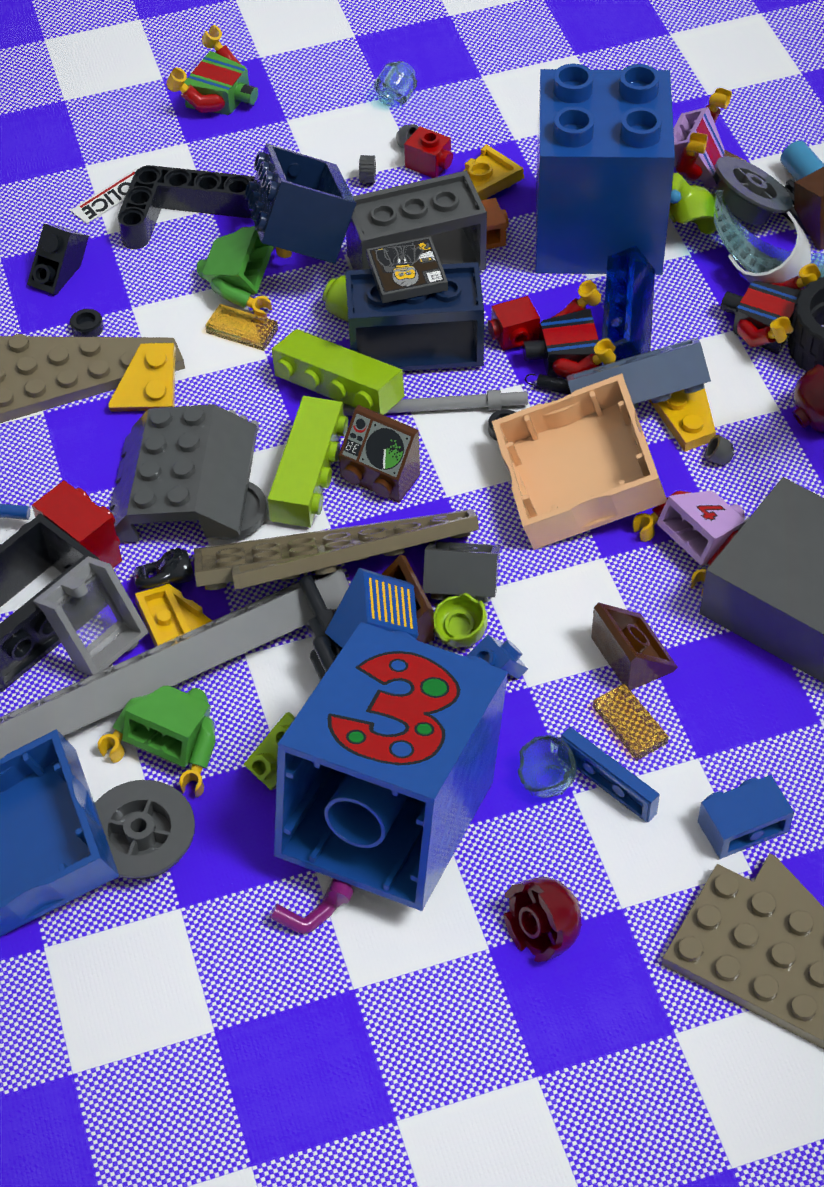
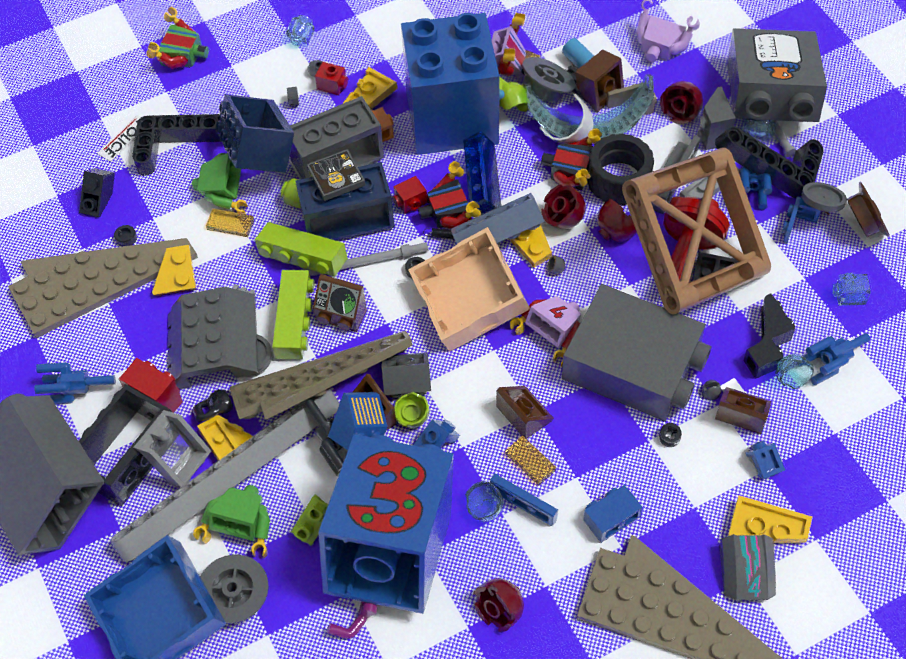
camera: 10 degrees left, 5 degrees up
(745, 369) = (563, 207): none -> dark red cylinder

